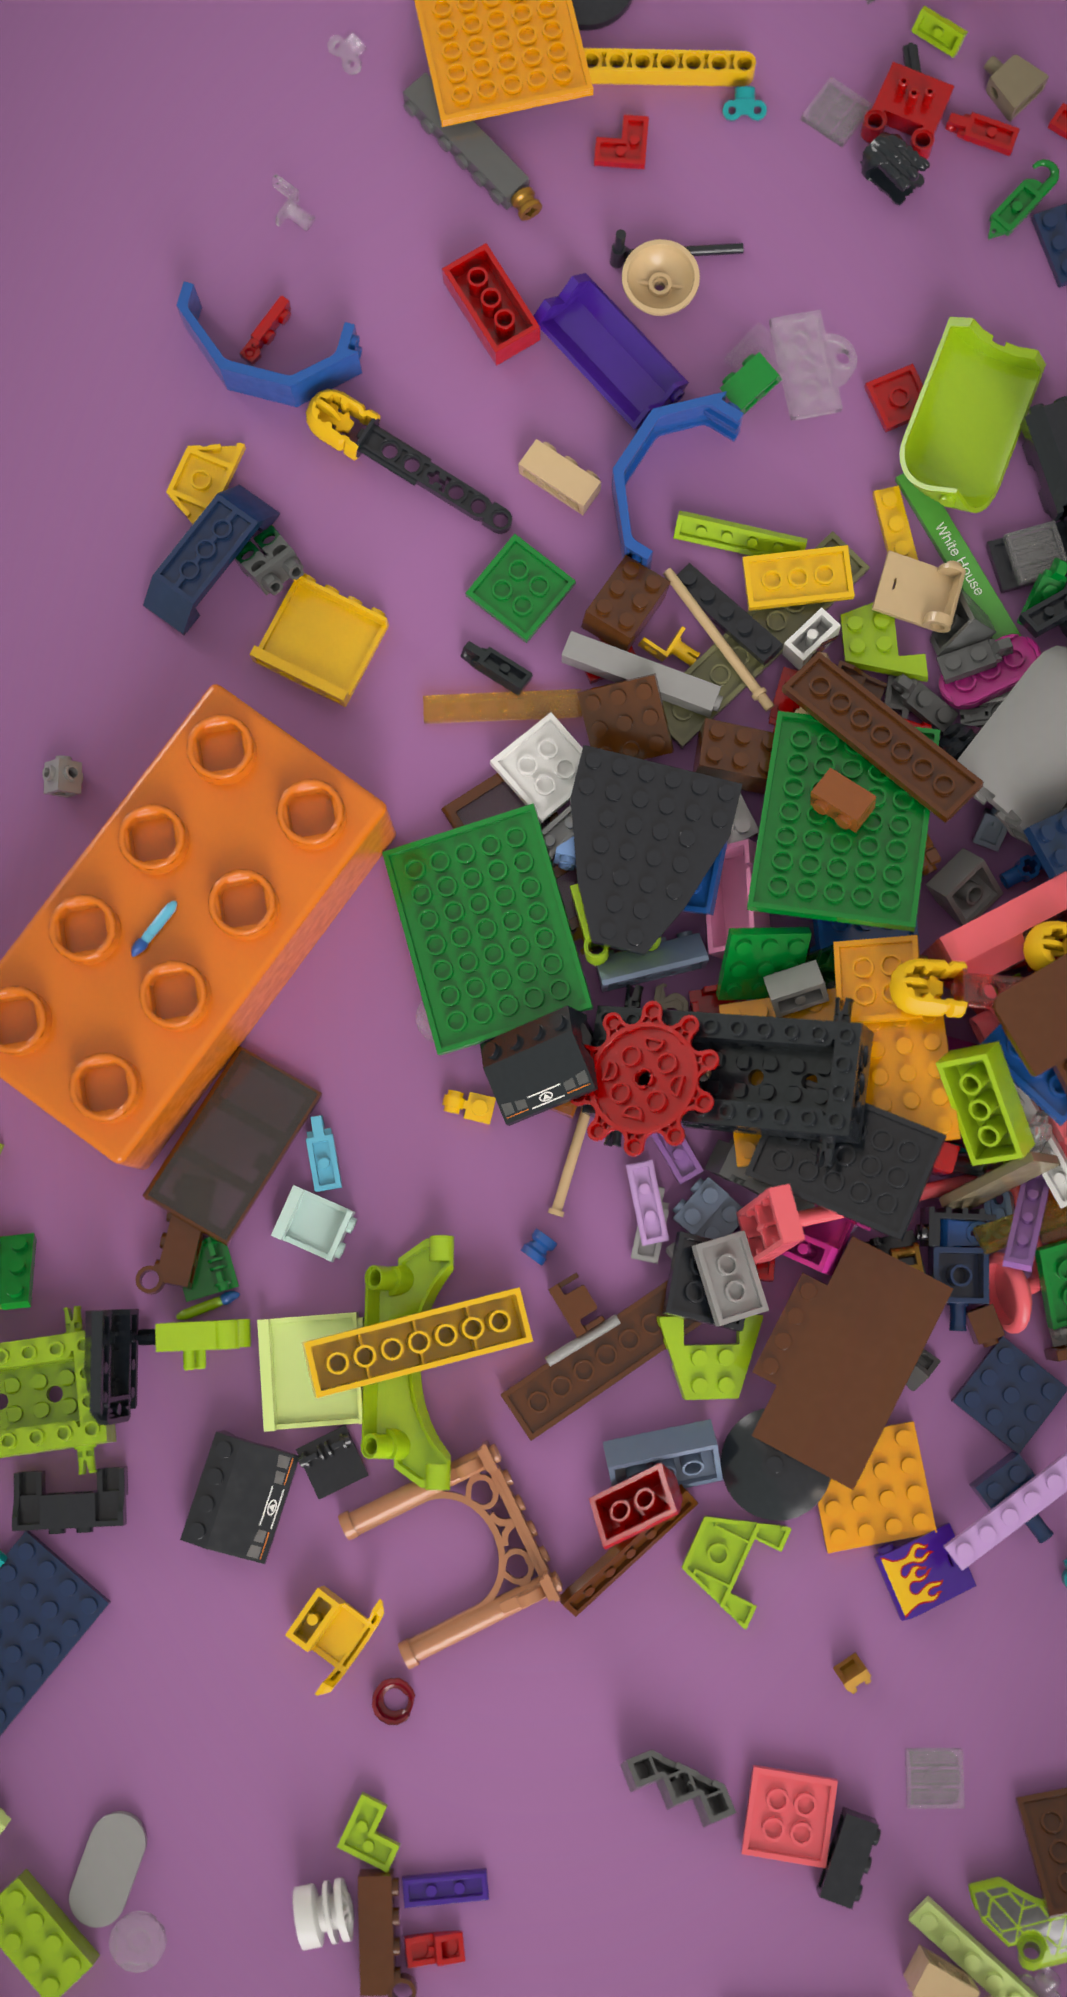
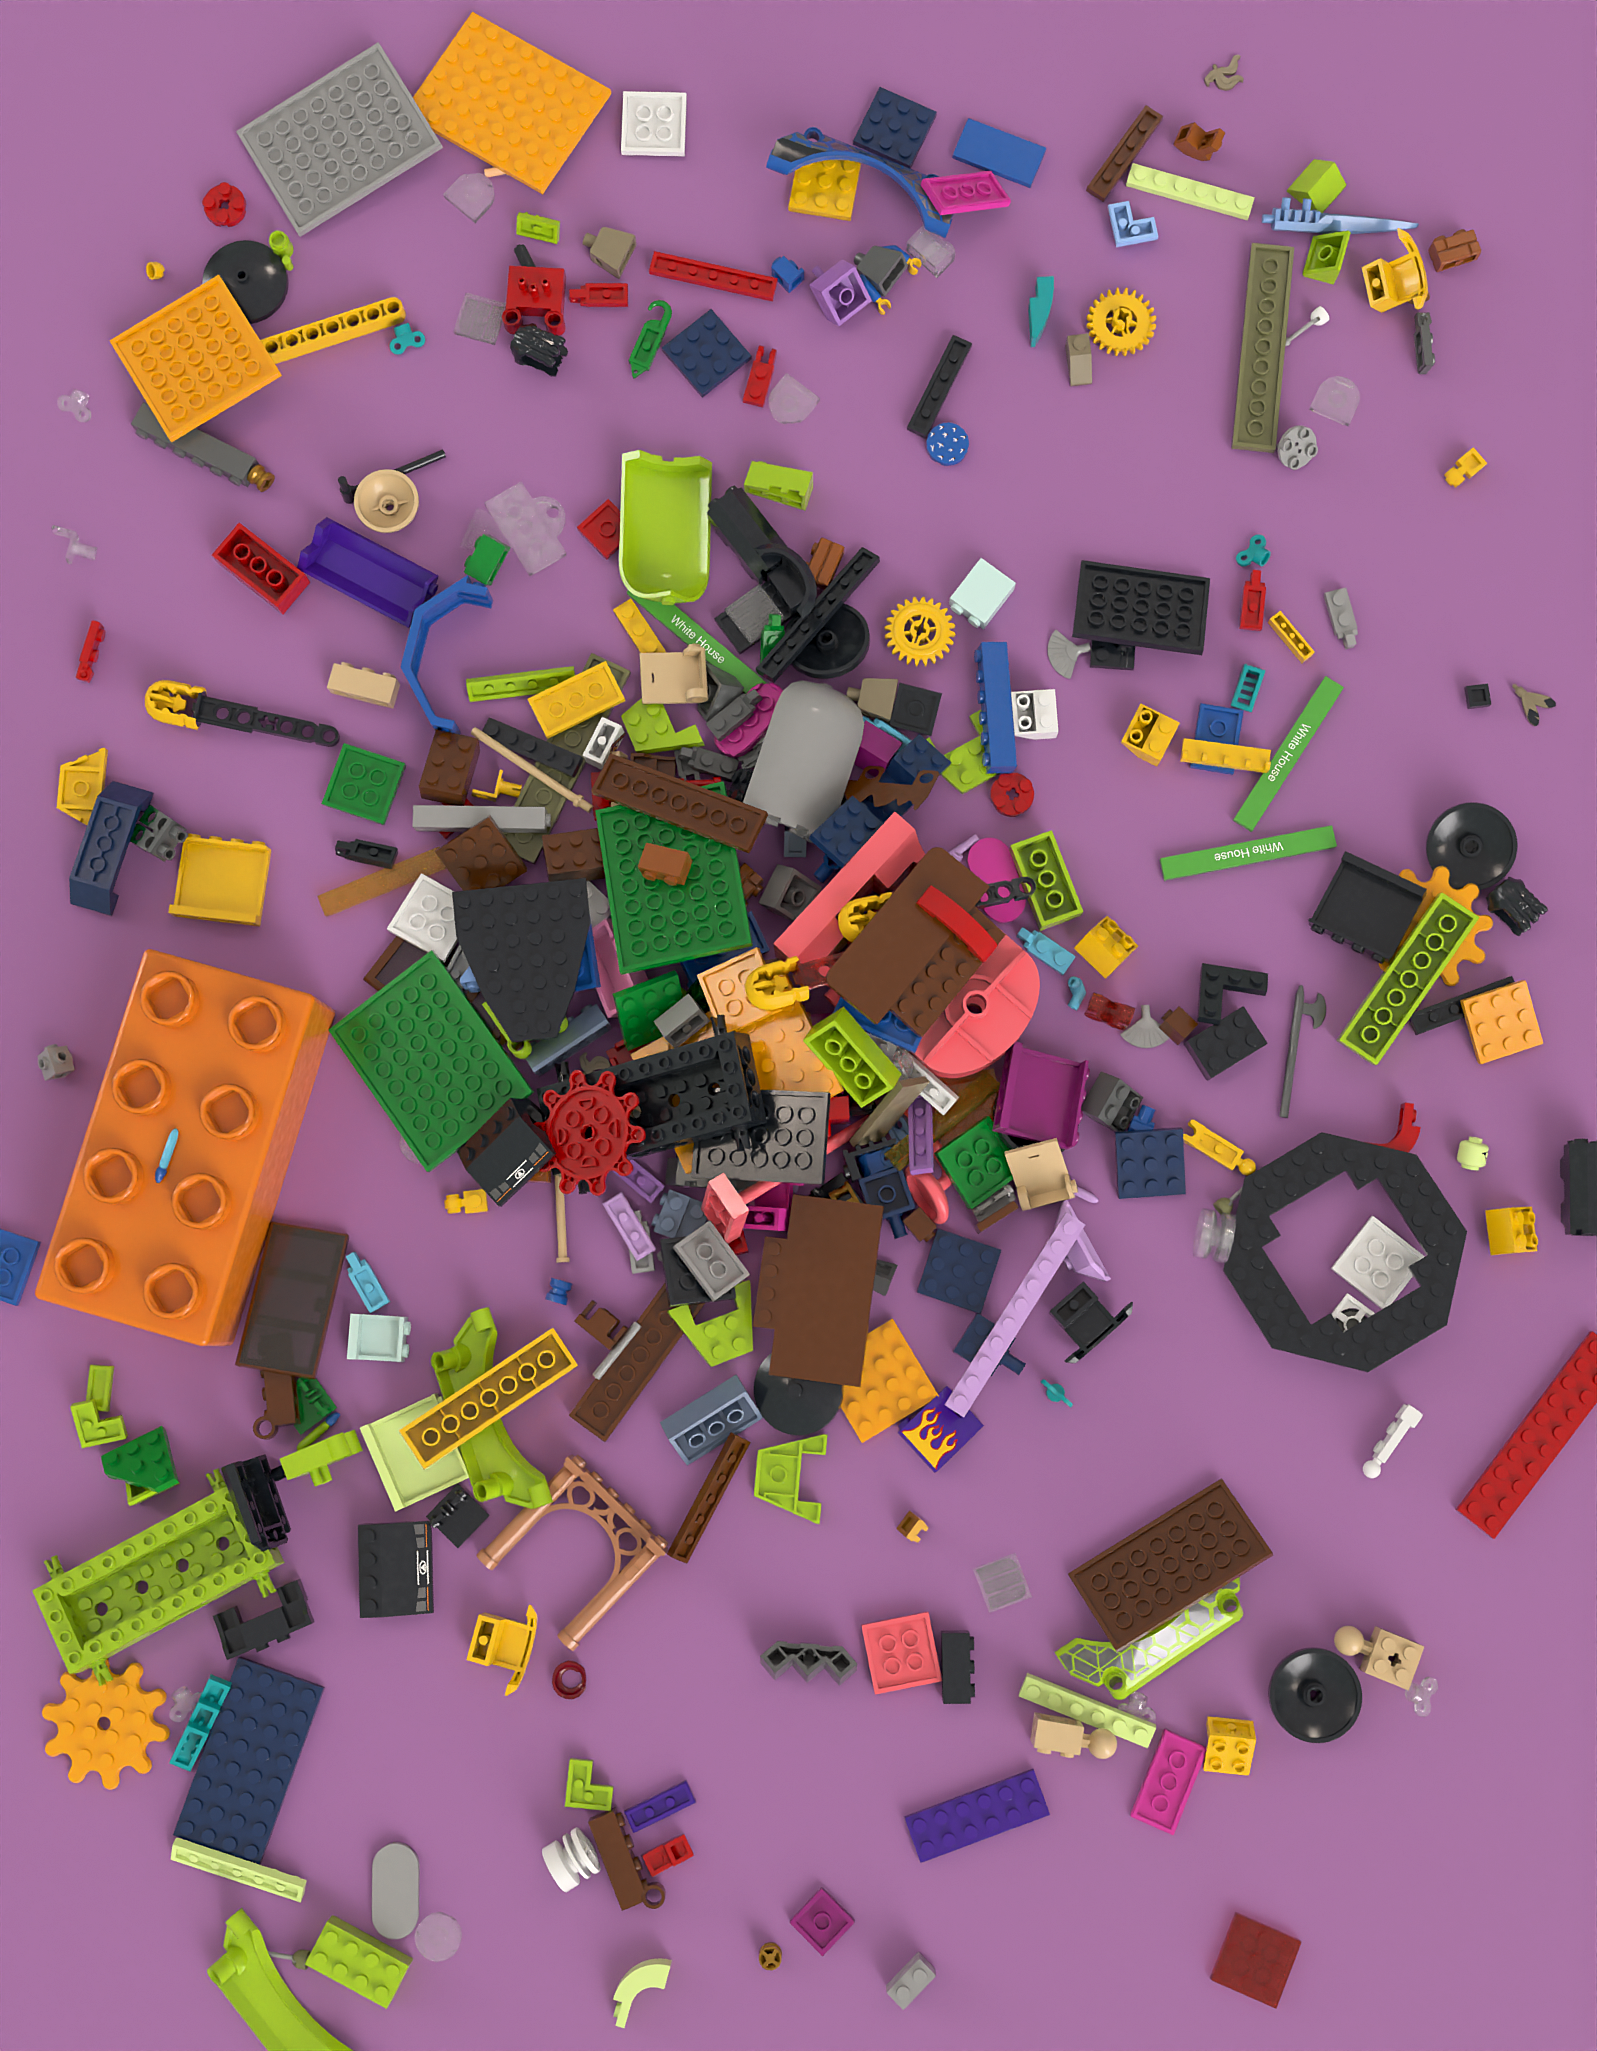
camera: 20 degrees left, 0 degrees up
(266, 384) = (127, 692): blue panel -> none
(624, 151) = (326, 408): red plate -> none
(636, 1504) = (699, 1459): red slope -> none

